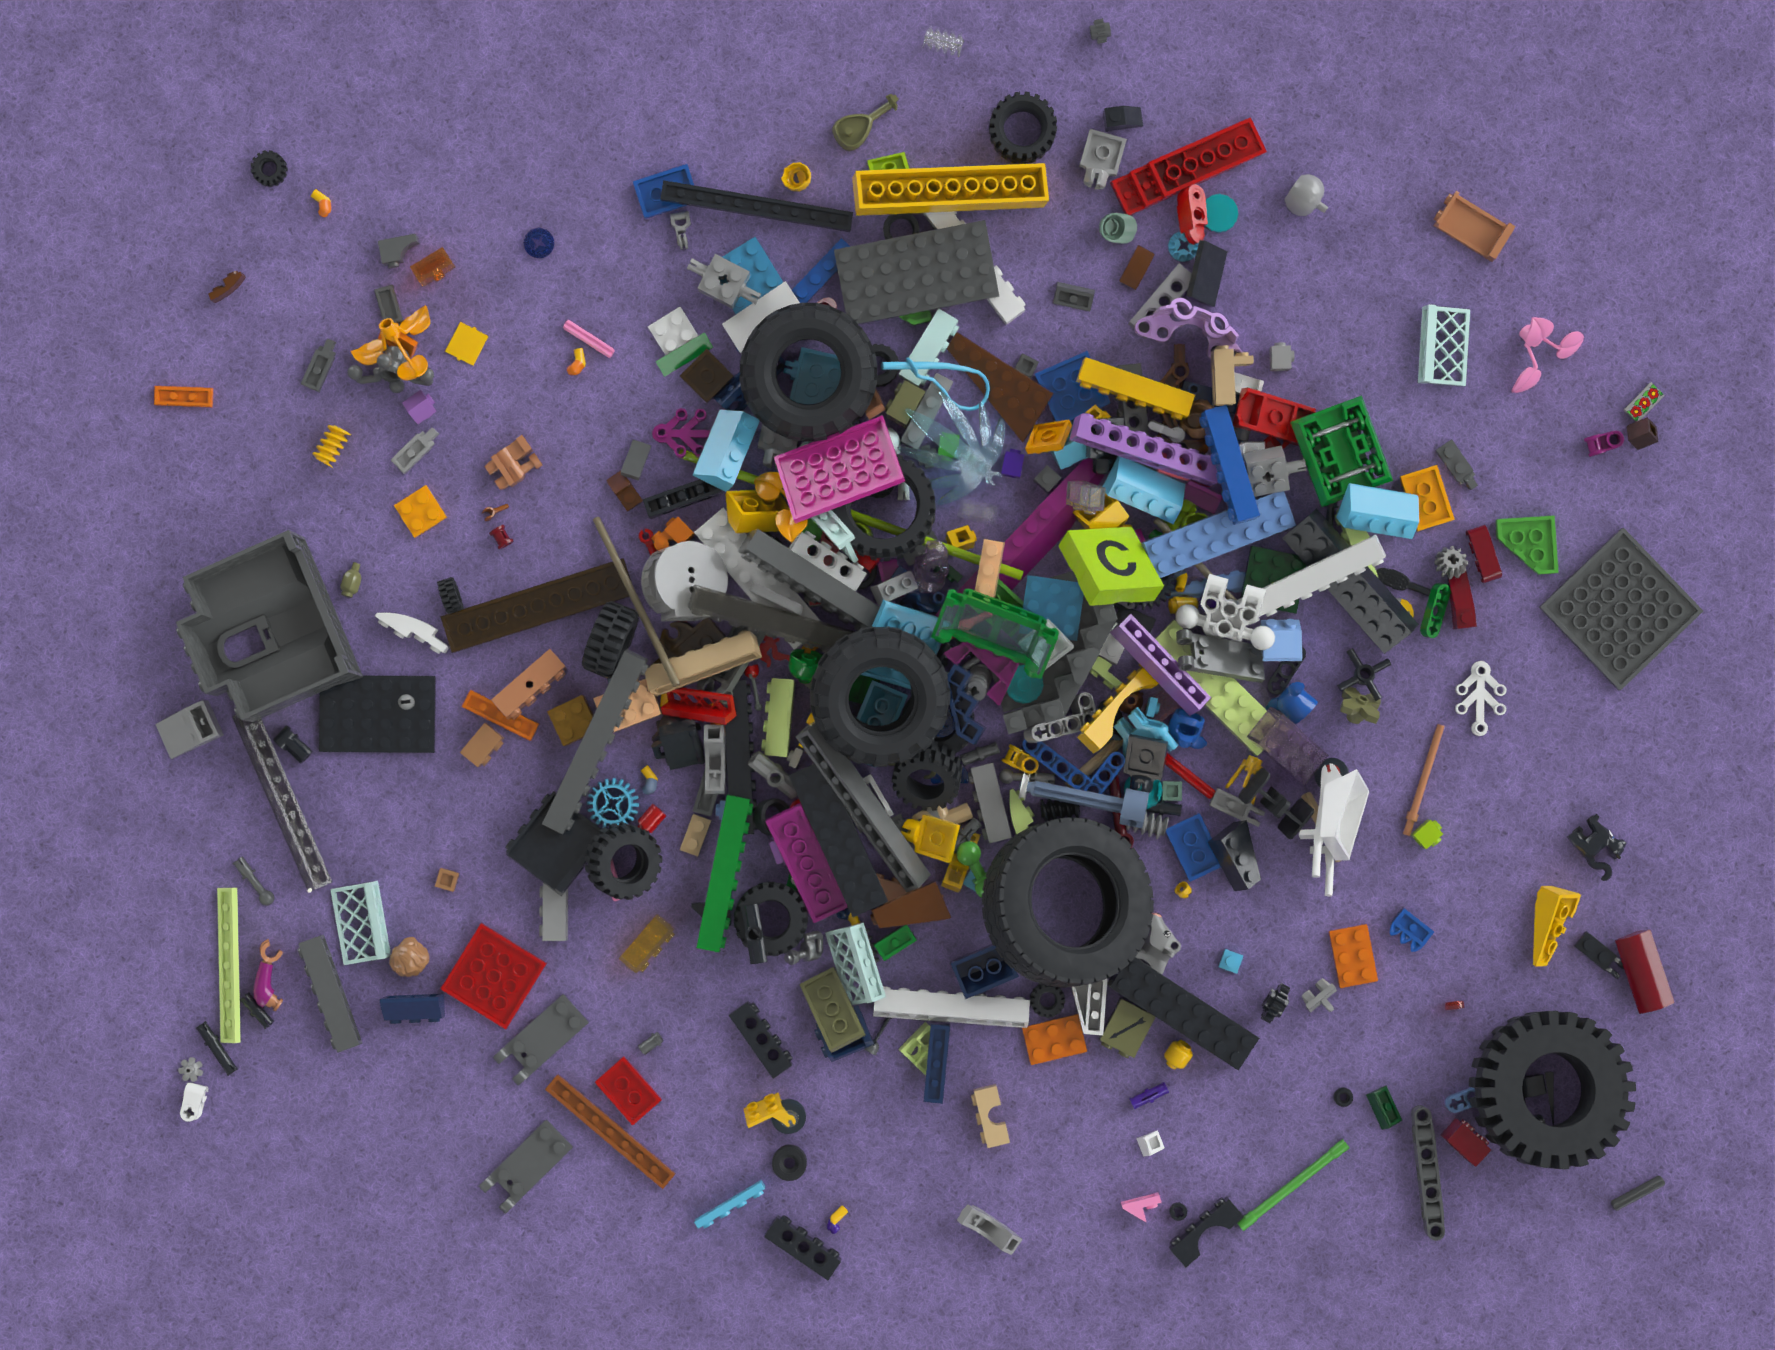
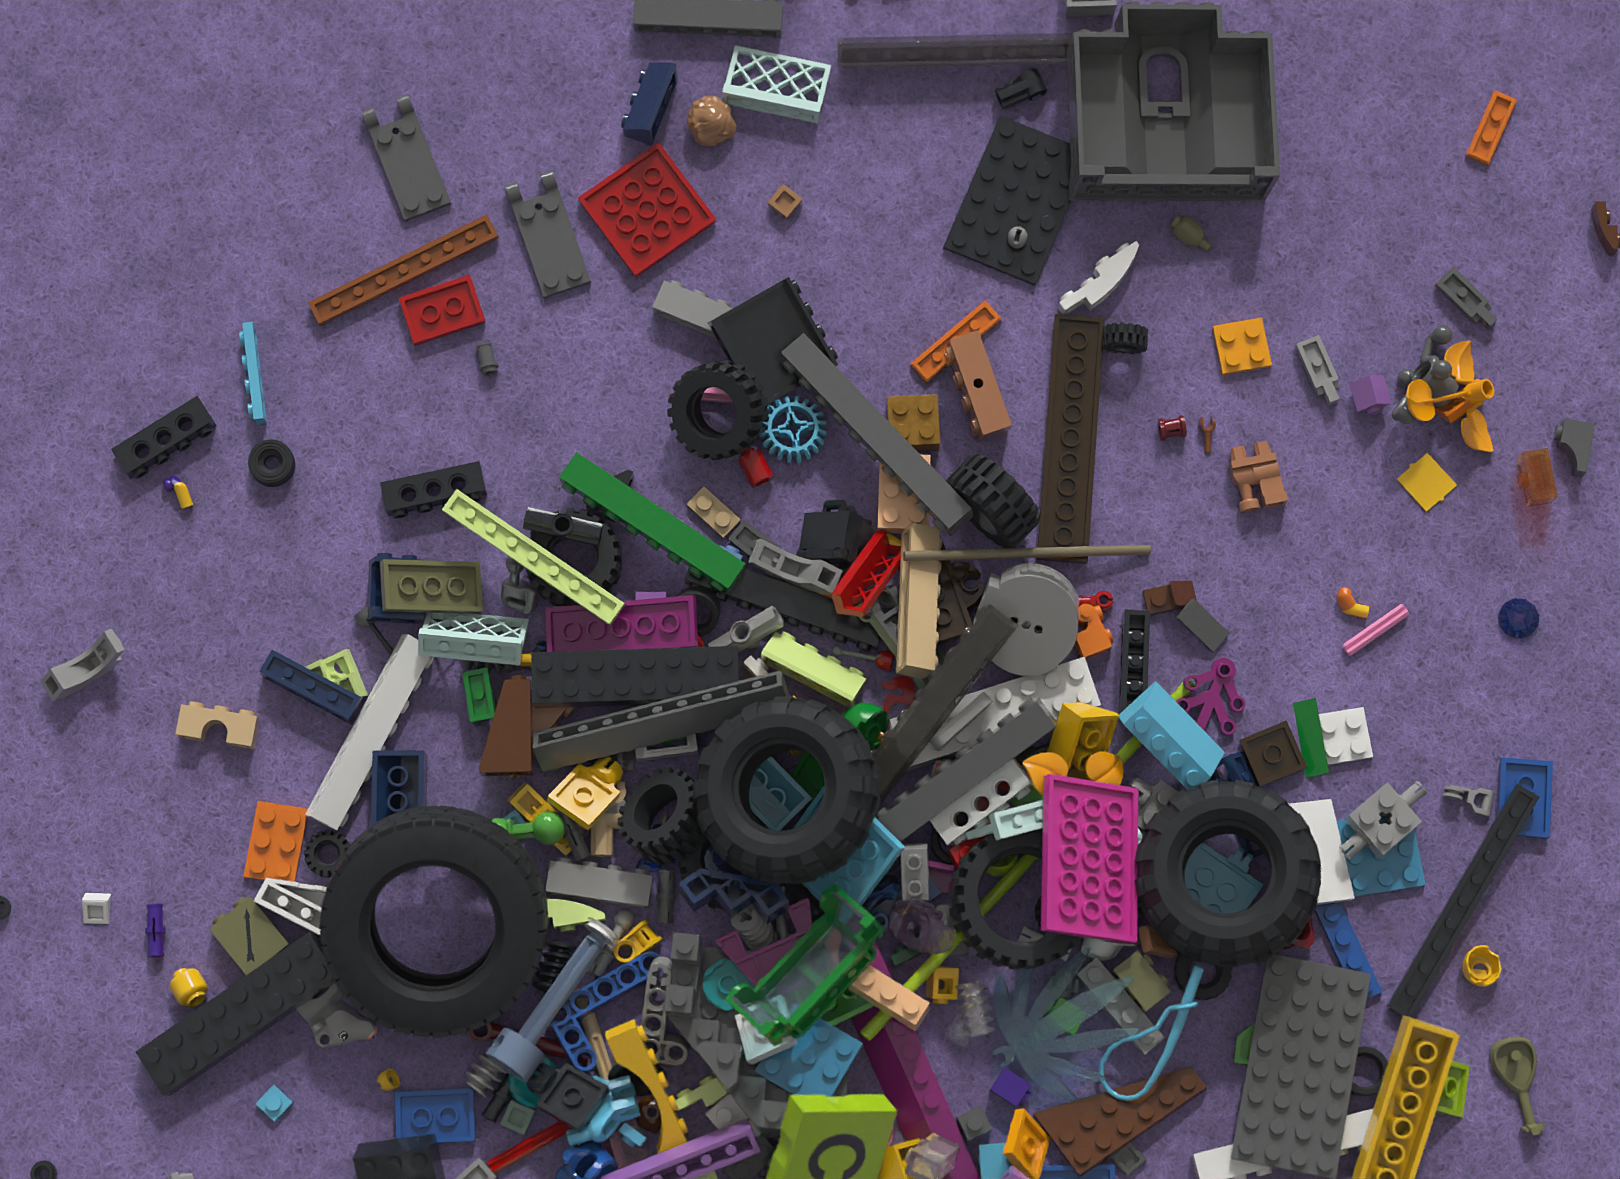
camera: 110 degrees right, 10 degrees down
(330, 445) = (1364, 272): yellow piece -> none
(388, 303) = (1510, 408): dark grey tile -> none
(482, 745) = (928, 305): medium nougat brick -> none
(647, 944) = (606, 402): clear yellow brick -> none
(651, 780) = (801, 486): arm -> none
(784, 945) = (533, 557): none -> yellowish green plate
(786, 1115) = (330, 481): yellow plate -> none
(931, 344) = (1203, 1048): light aqua brick -> none
(970, 508) = (975, 1009): none -> clear piece
(1136, 1205) = (29, 857): bright pink slope -> none
(1275, 1003) = (197, 1134): black gear -> none

